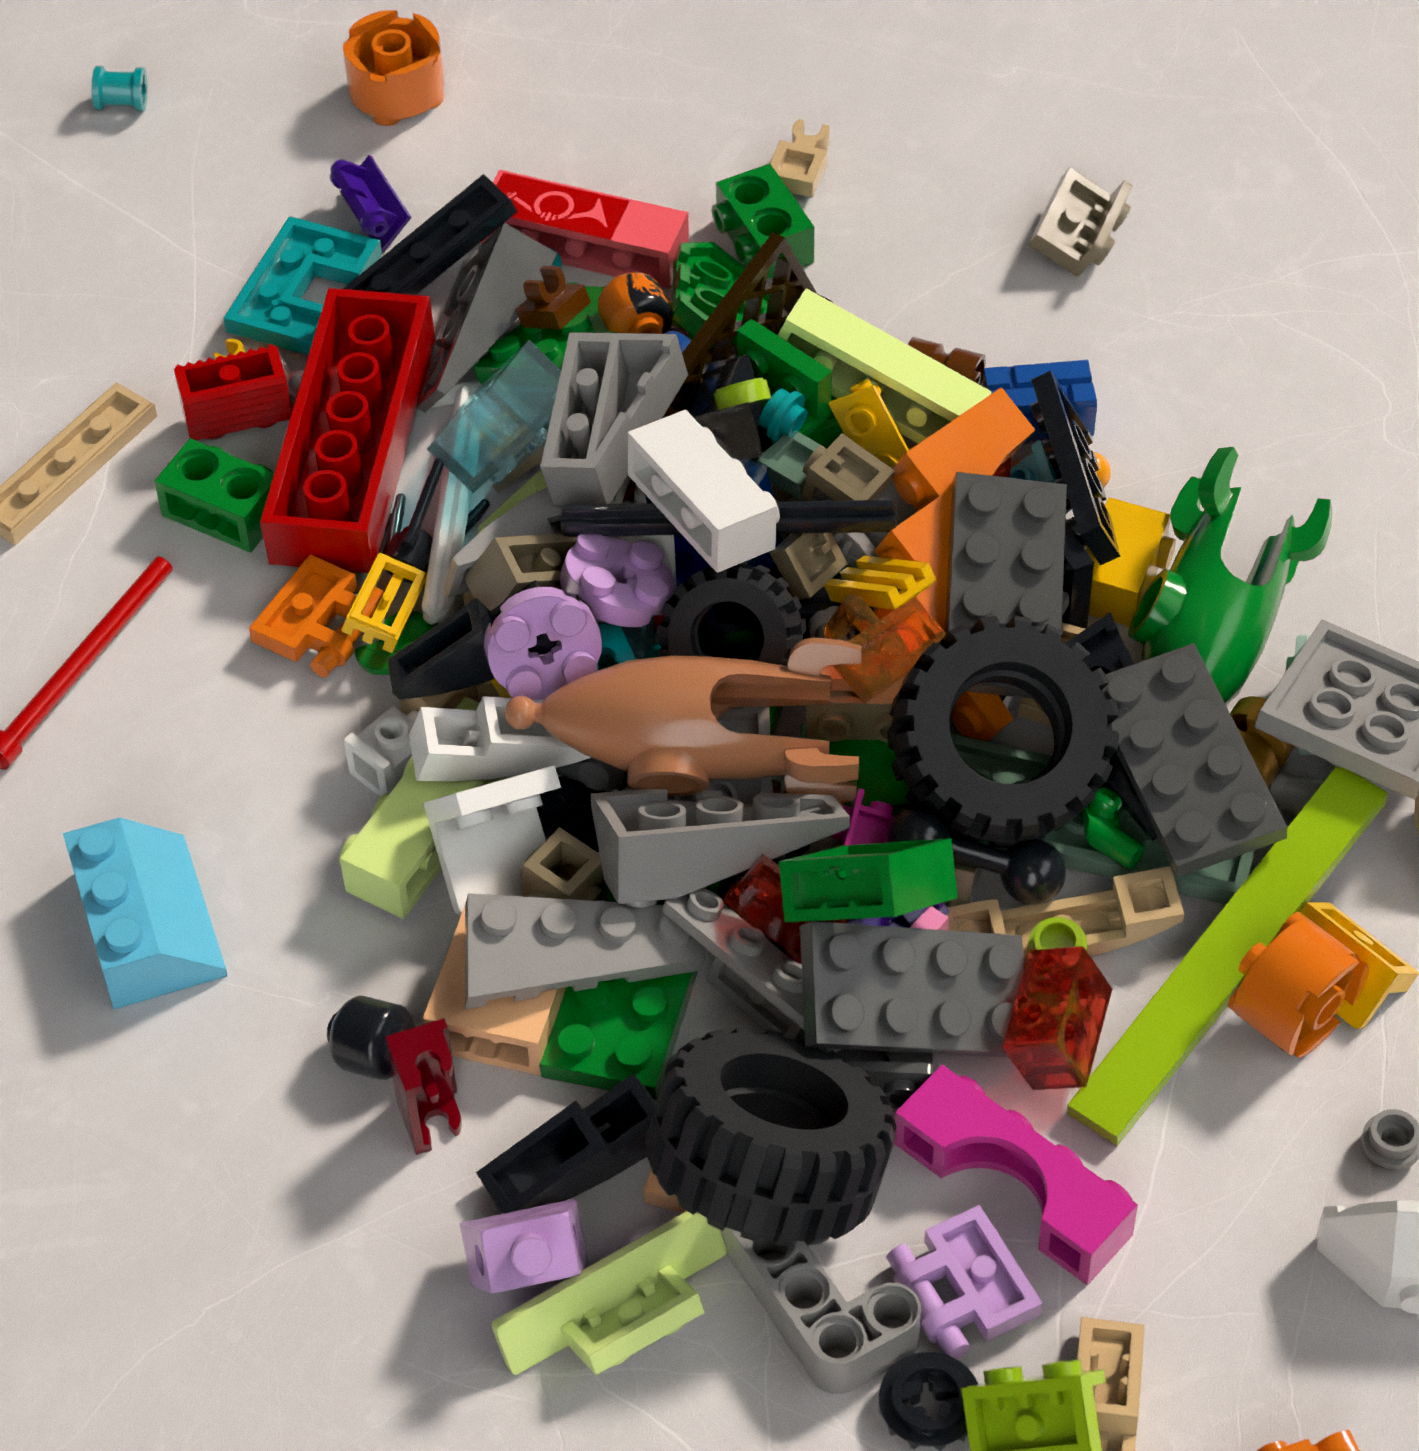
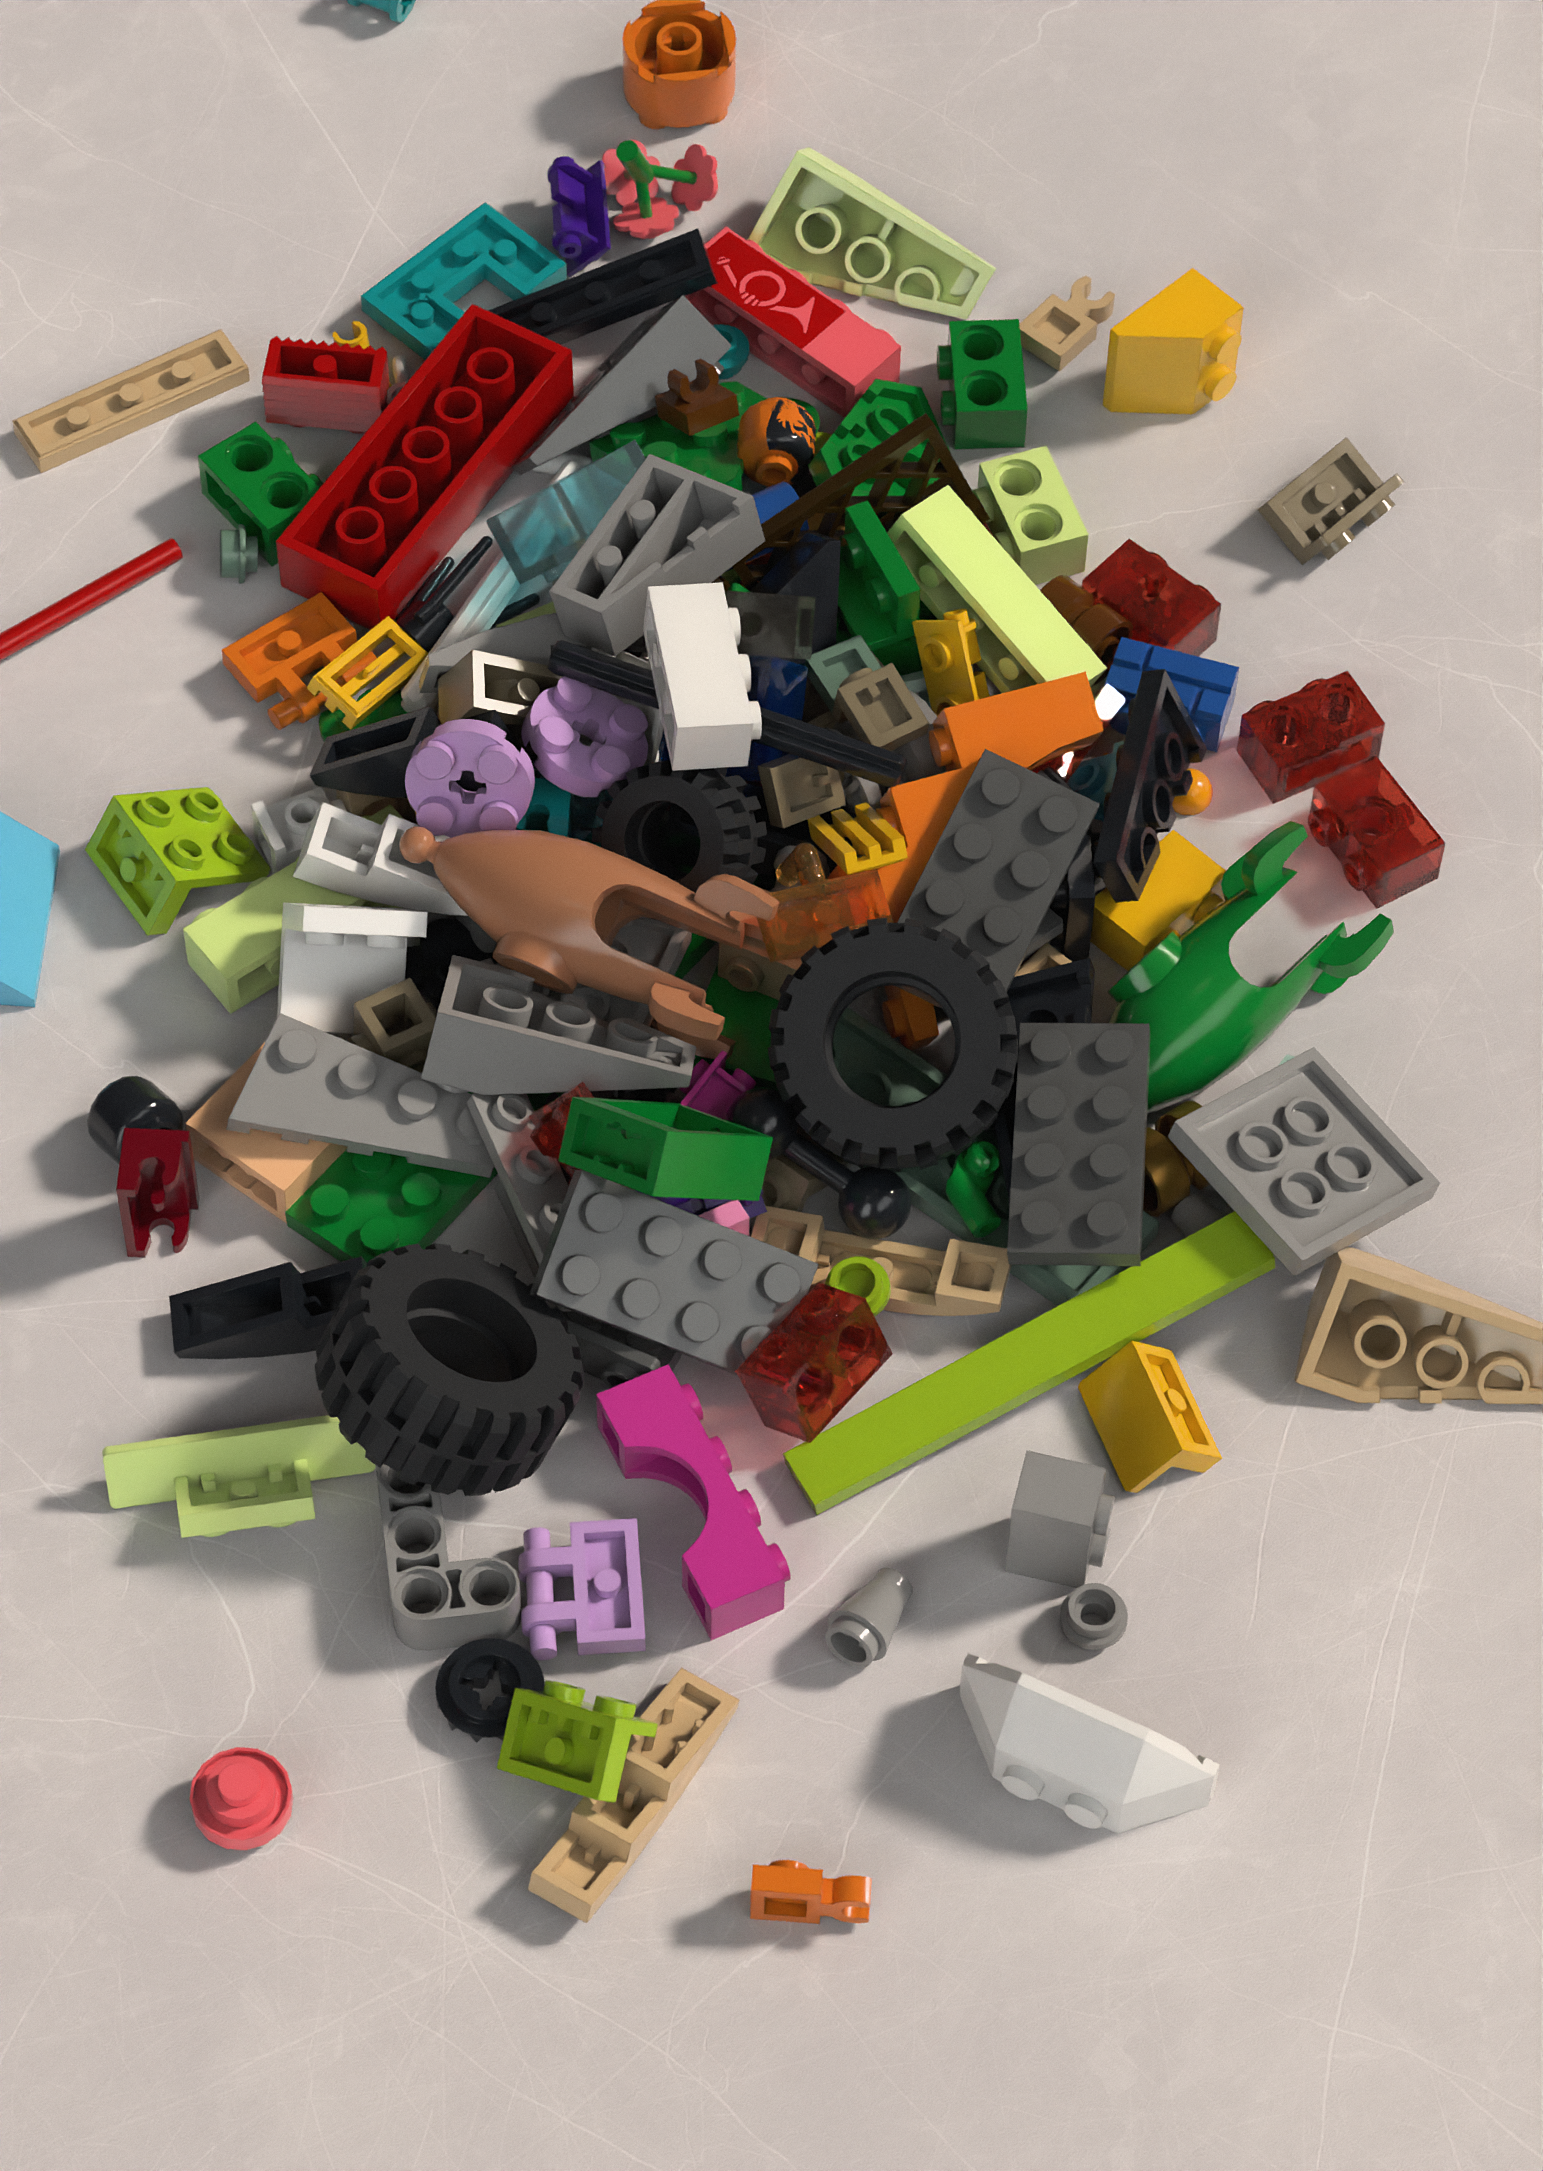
camera: 20 degrees right, 5 degrees up
(220, 550) = (237, 553): none -> sand green plate
(281, 806) = (164, 845): none -> lime bracket
(399, 161) = (633, 176): none -> coral plant
(524, 1247) = (176, 1388): lavender torso -> none
(615, 148) = (864, 242): none -> yellowish green wedge
(750, 391) = (808, 583): lime tile -> none
(783, 414) = (852, 618): teal plate -> none
(864, 294) = (1033, 514): none -> yellowish green brick
(905, 146) = (1174, 350): none -> yellow slope
(998, 332) = (1156, 600): none -> clear red brick
(1165, 395) = (1309, 735): none -> clear red brick
(1215, 1215) = (867, 1621): none -> light grey cone
(1272, 449) = (1404, 844): none -> clear red brick
(1297, 985) = (1074, 1412): orange brick -> none
(1332, 1068) = (1058, 1520): none -> light grey brick

